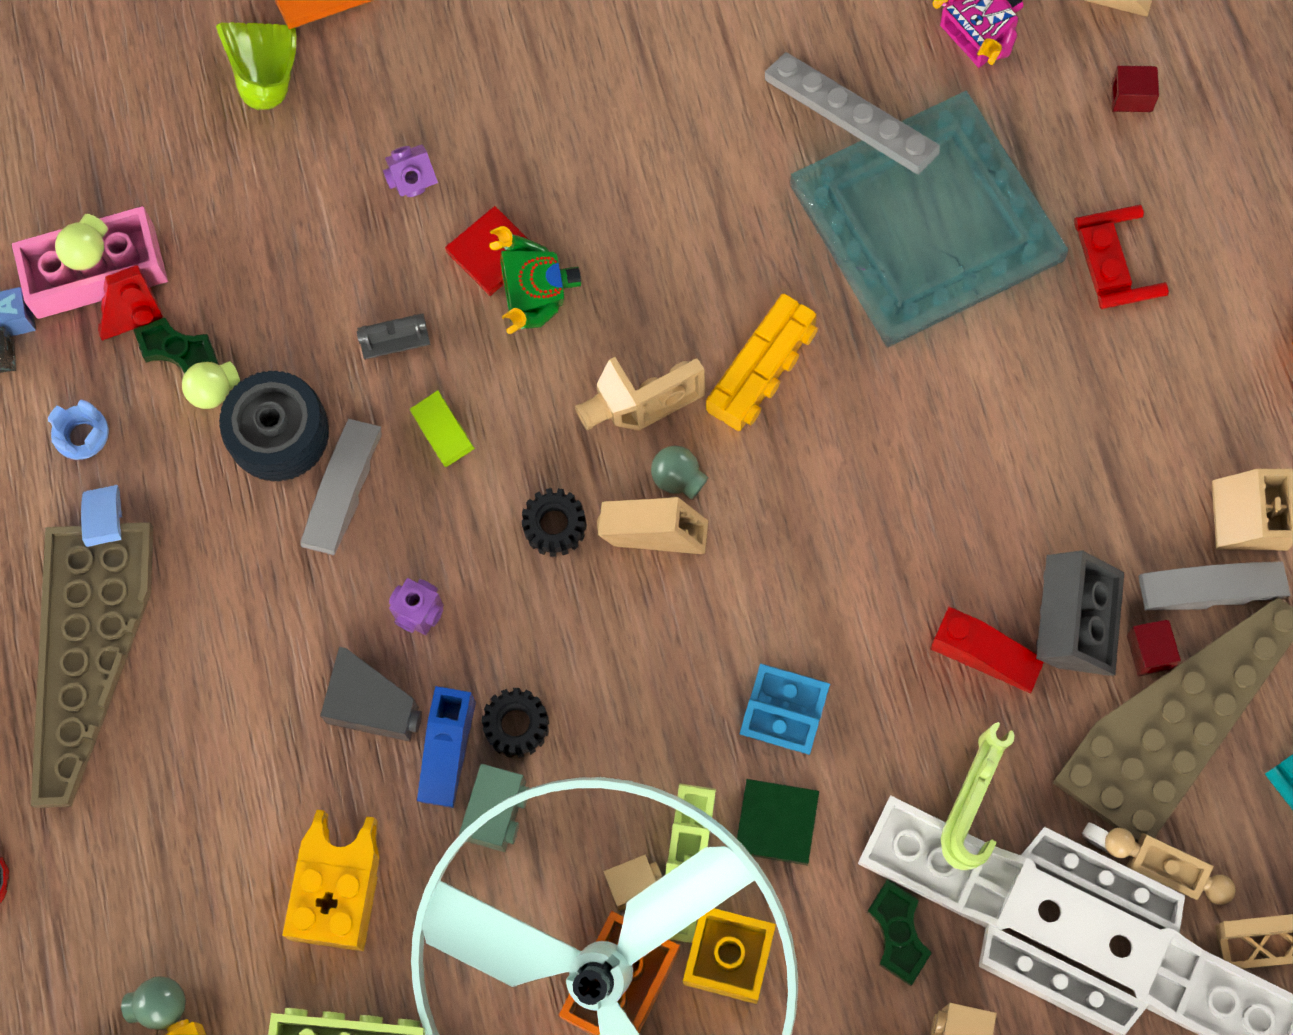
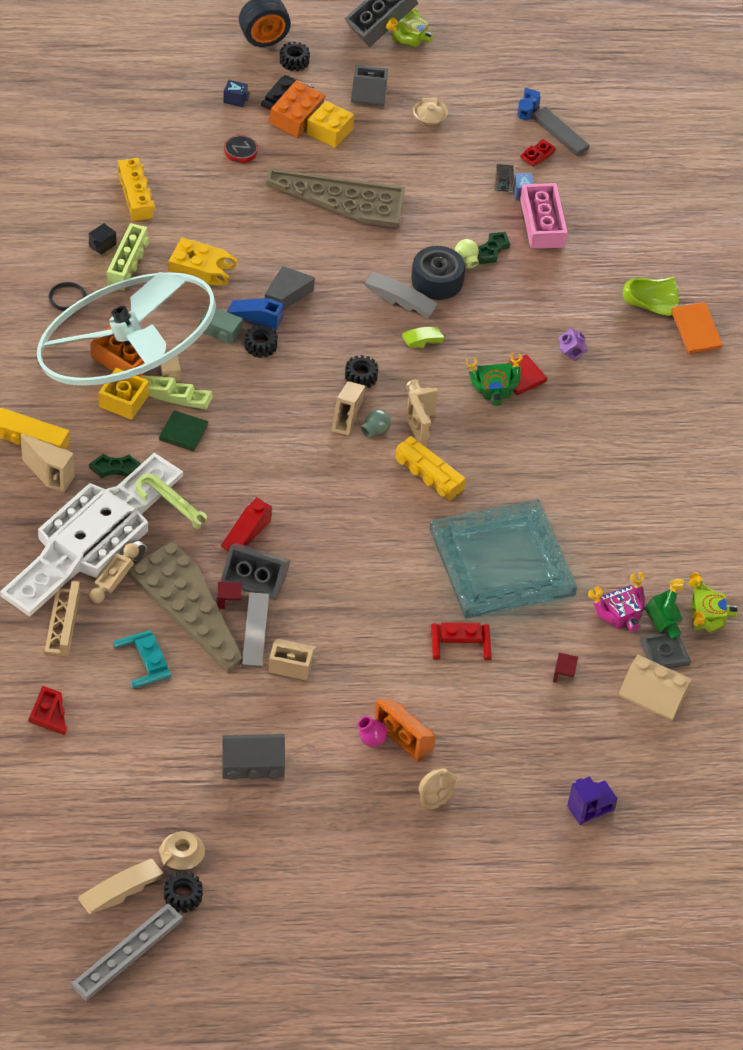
camera: 90 degrees right, 20 degrees down
(66, 420) = (449, 201): light blue piece -> none
(81, 243) = (547, 203): yellowish green piece -> none
(101, 515) = (405, 203): light blue slope -> none
(127, 303) = (517, 225): red wing -> none
(155, 1003) = (165, 198): sand green piece -> none
(393, 336) = (480, 327): dark grey hinge -> none
(423, 614) = (329, 311): medium lavender brick -> none
(785, 708) = (240, 444): dark azure slope -> none
(852, 113) = (571, 531): light grey plate -> none

